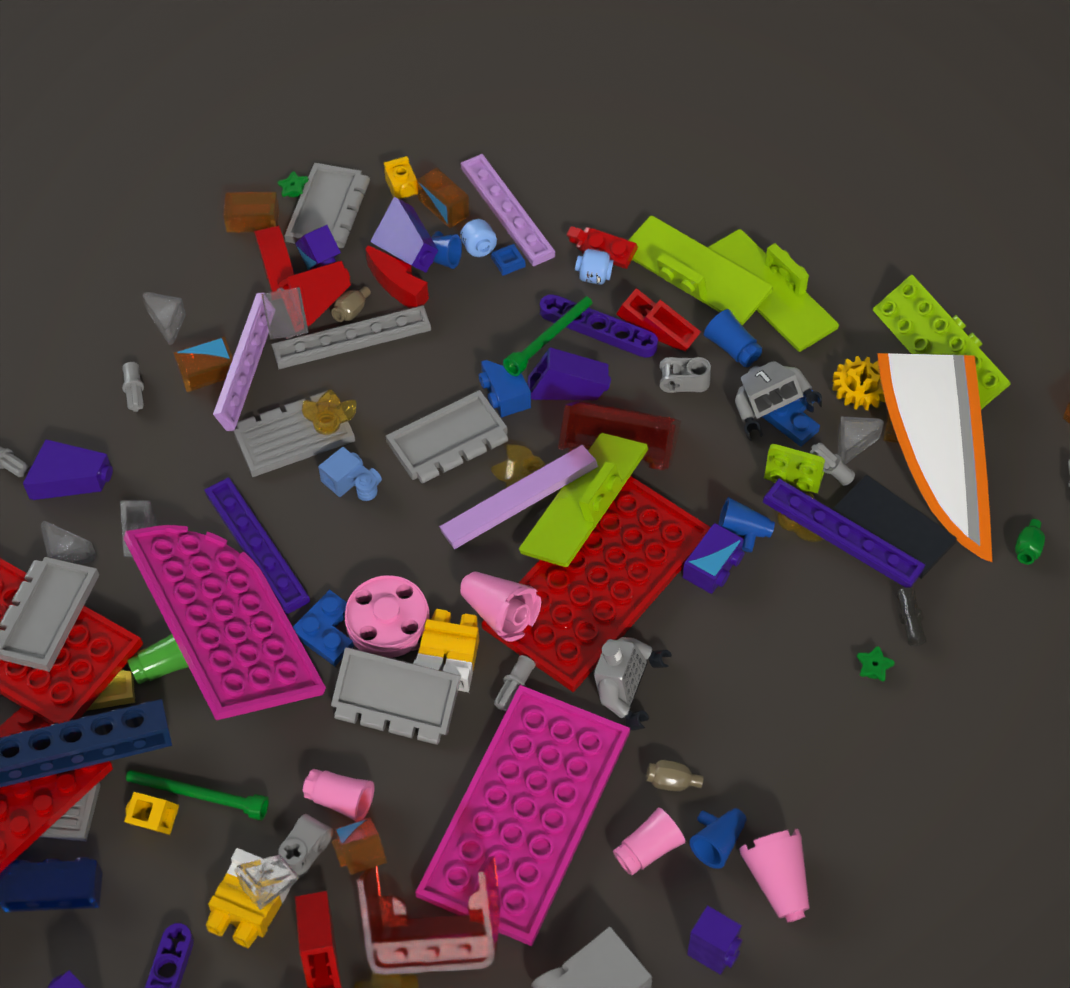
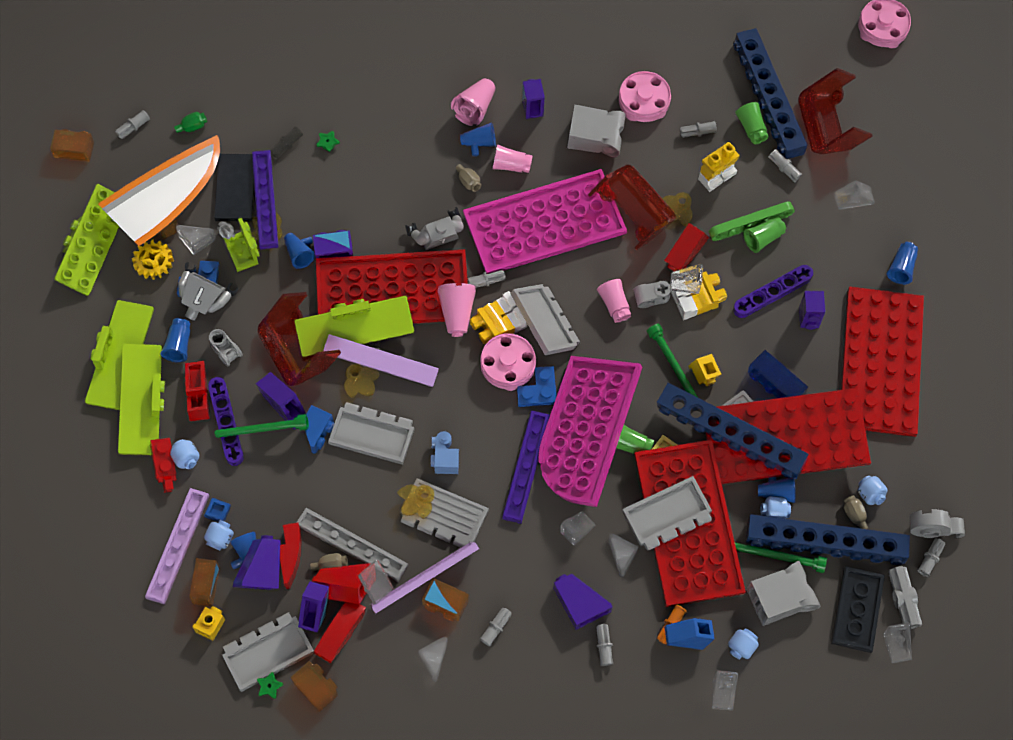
camera: 135 degrees left, 10 degrees up
(358, 846) = (632, 263): clear orange brick -> none

